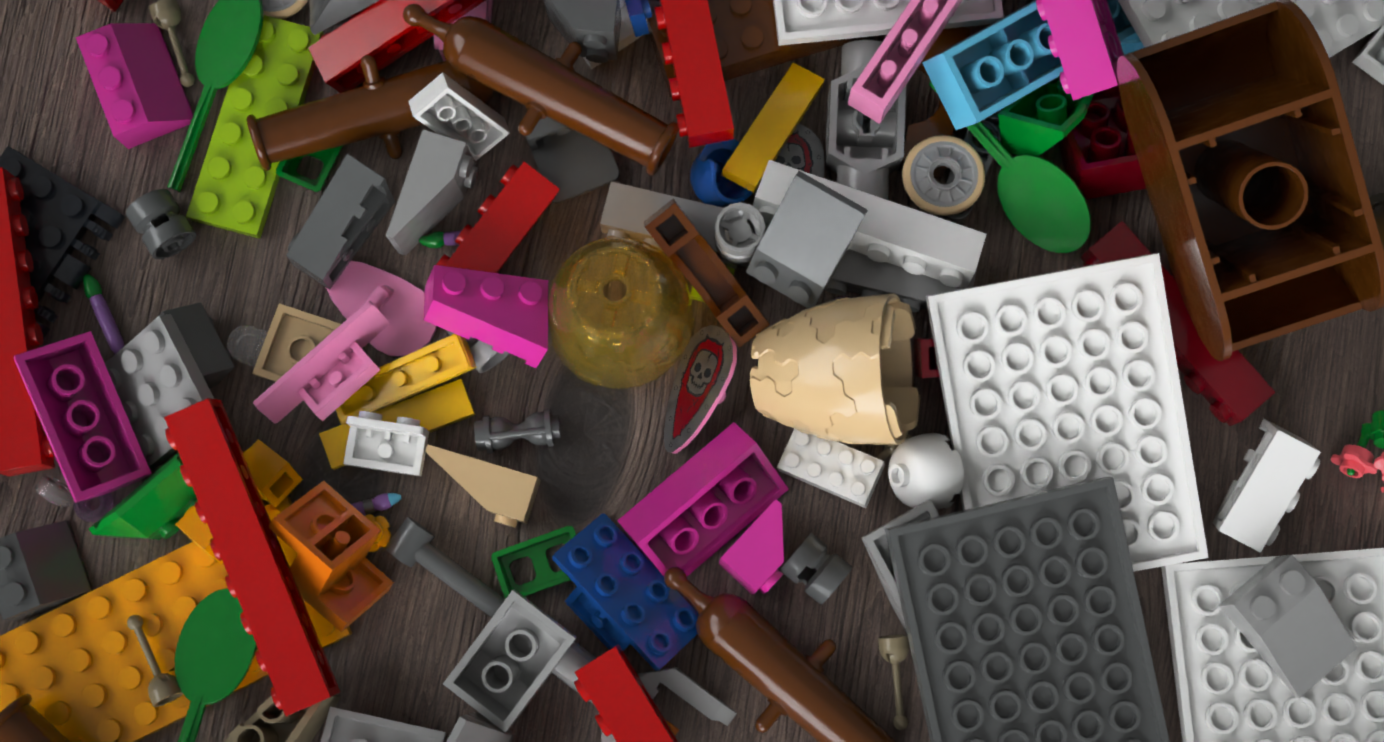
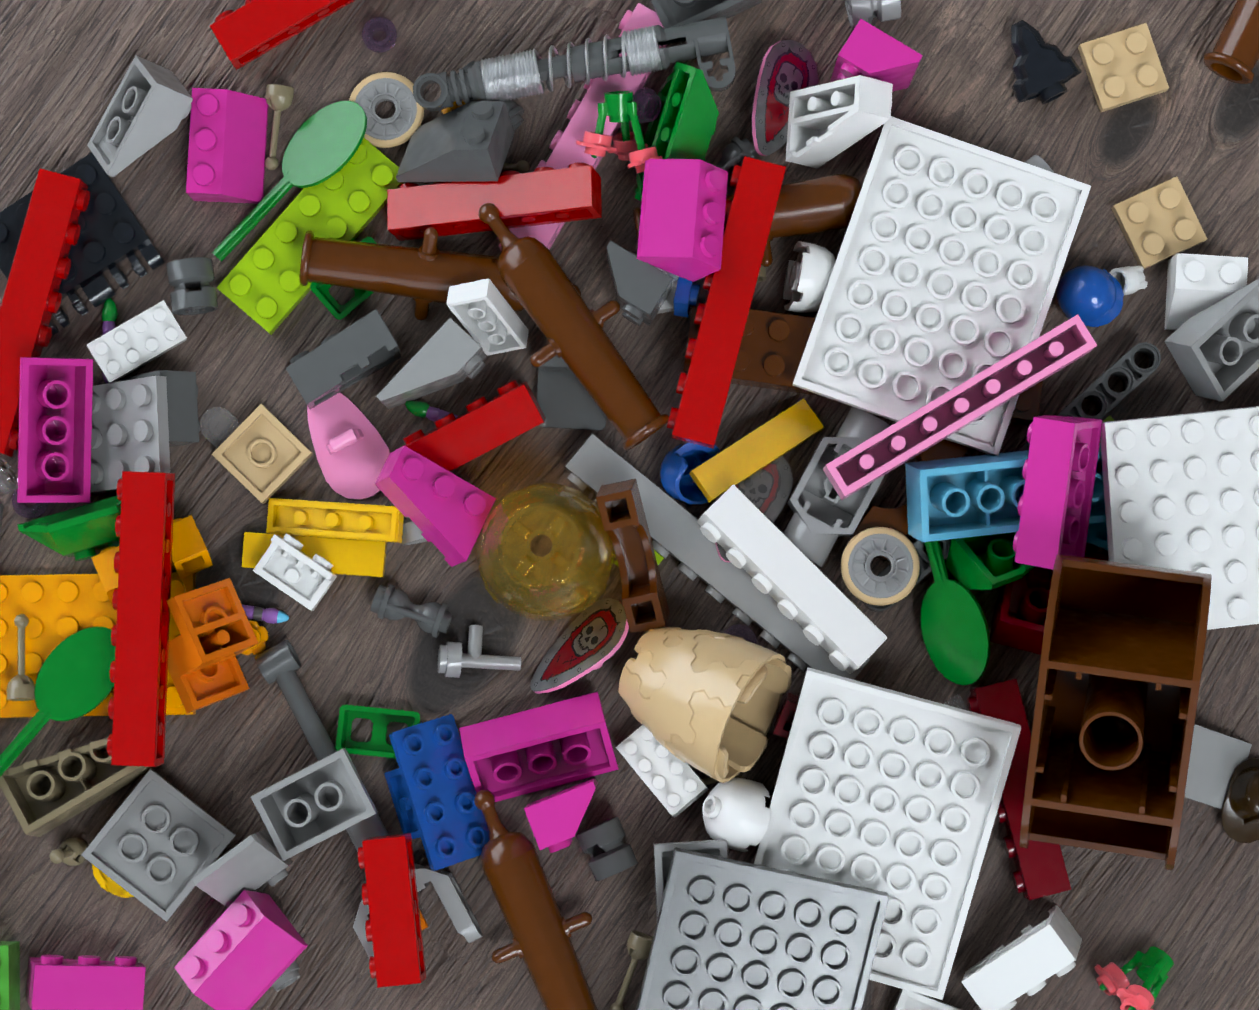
camera: 30 degrees right, 5 degrees up
(35, 86) = (139, 115): none -> light grey slope
(130, 301) = (136, 342): none -> white piece
(328, 371) = (276, 487): bright pink bracket -> none
(496, 488) = (369, 649): tan slope -> none
(579, 459) = (452, 659): none -> light grey piece
(738, 232) = (677, 535): light grey wheel -> none
(806, 240) = (726, 574): slope -> none

